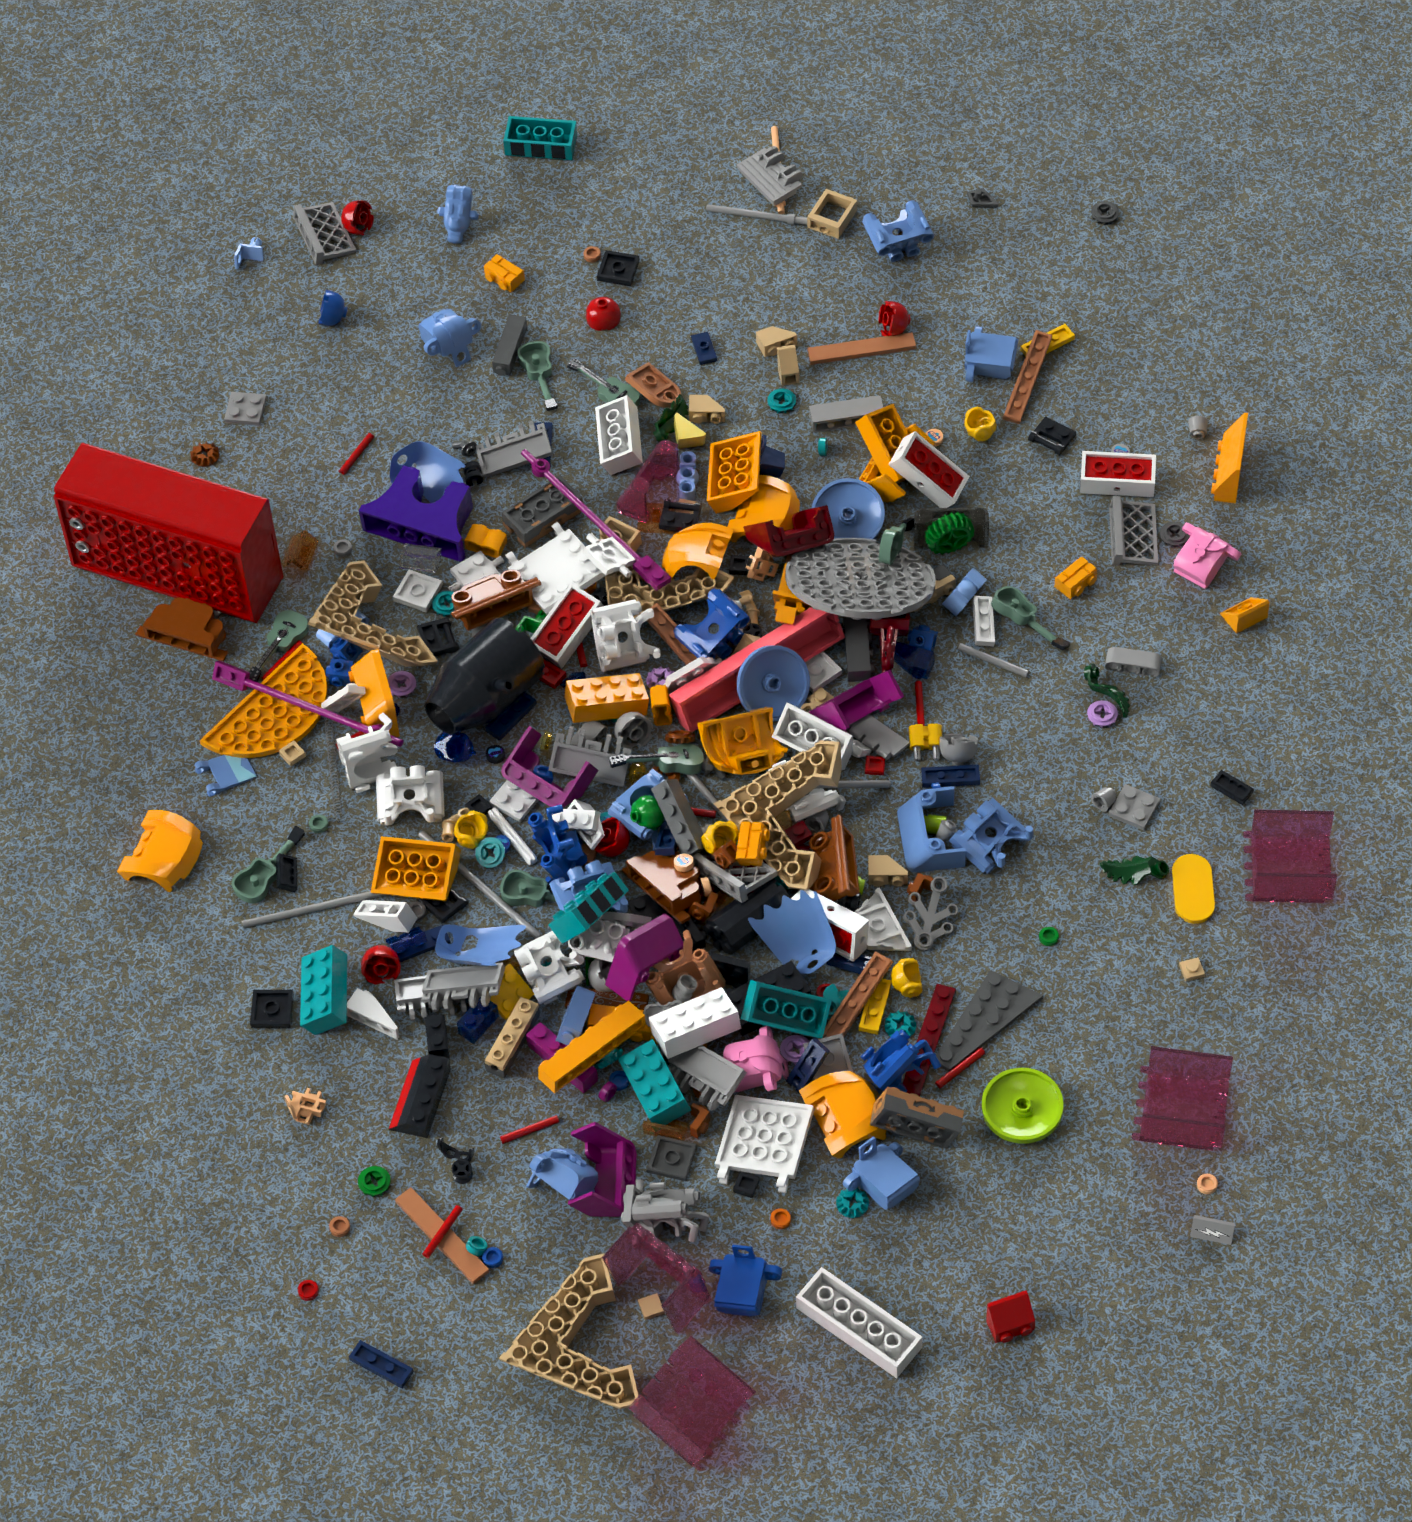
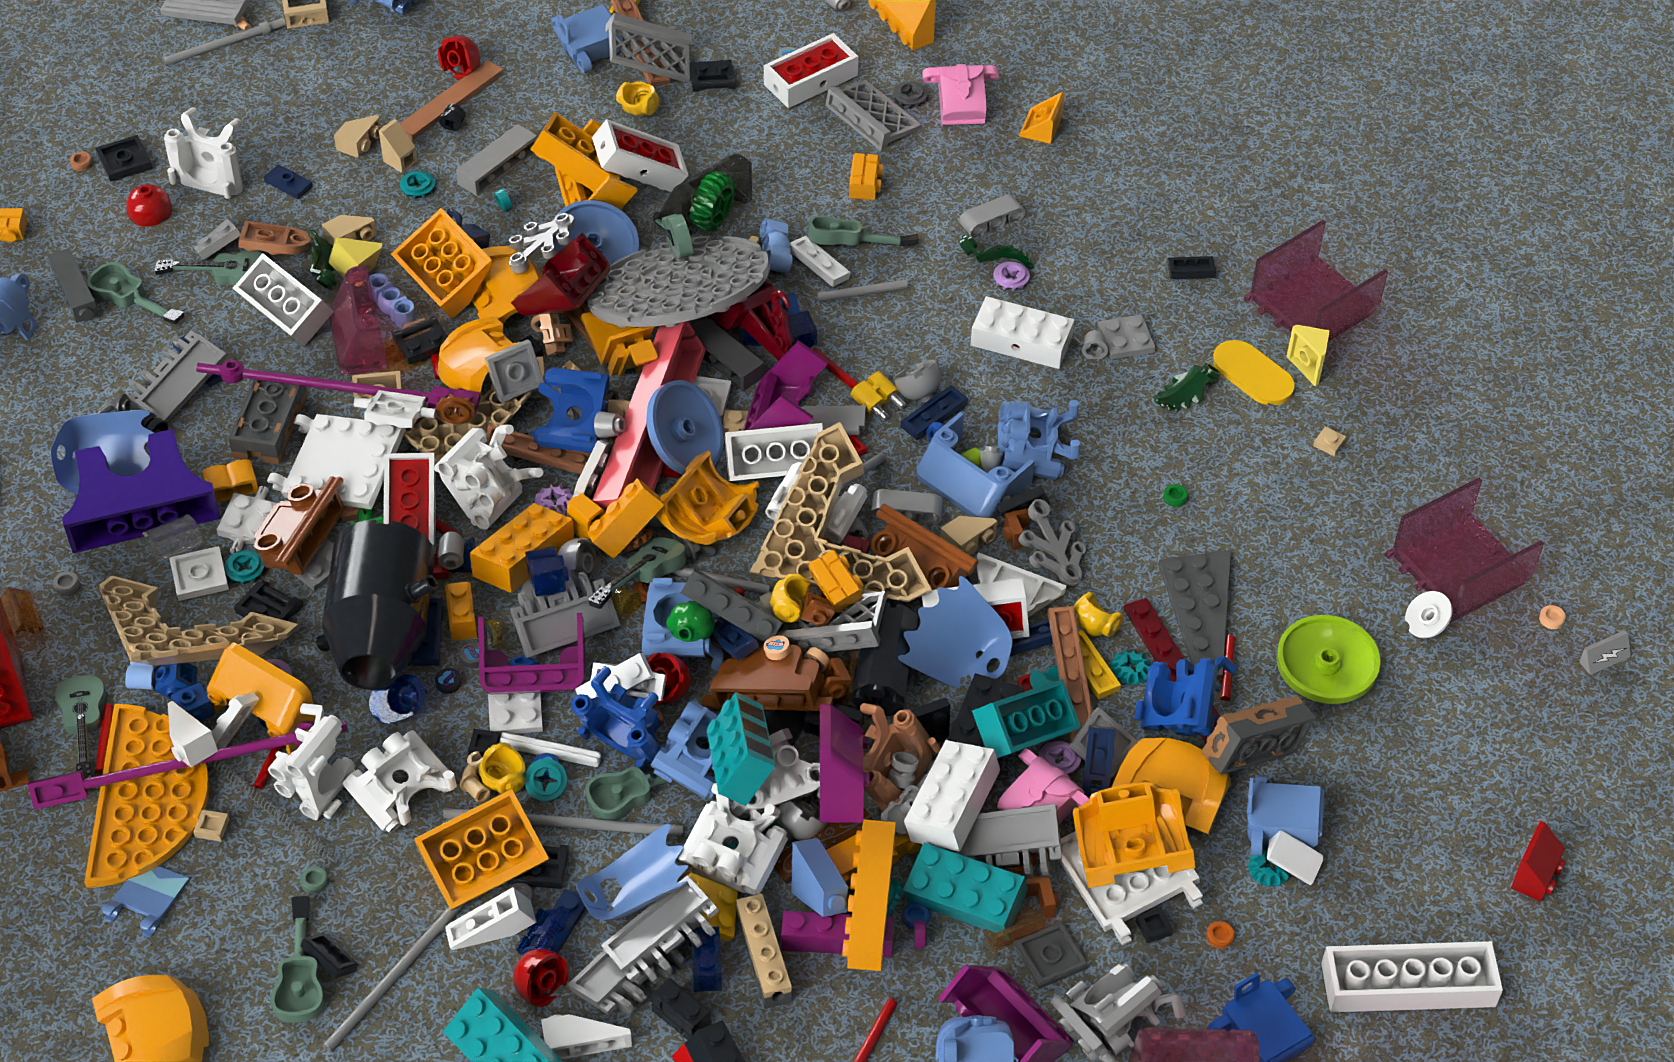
camera: 45 degrees left, 5 degrees down
(314, 690) = (190, 738): none -> white slope
(539, 713) = (460, 611): none -> light orange brick
(564, 671) = (451, 550): none -> light grey brick
(595, 722) = (546, 571): none -> clear blue brick
(621, 365) = (217, 239): none -> light grey wing
(642, 579) = (455, 415): none -> dark orange gear
(657, 302) = (204, 160): none -> white piece
(675, 719) = (625, 518): none -> light orange brick
(698, 575) = (514, 370): none -> light grey plate
(720, 650) = (608, 424): none -> light grey hat
(777, 1119) = (1131, 831): none -> light orange piece
(827, 490) = (561, 224): none -> light grey plant
(847, 363) = (452, 117): none -> black wheel
(866, 1206) = (1294, 856): none -> white slope
(867, 827) = (916, 506): none -> light grey beam
(944, 871) = (1023, 500): none -> black wing
(1024, 377) = (650, 35): none -> light grey fence
(1063, 758) = (1022, 332): none -> white brick
(1121, 1124) = (1423, 609): none -> white dish
(1241, 900) = (1308, 351): none -> light yellow slope

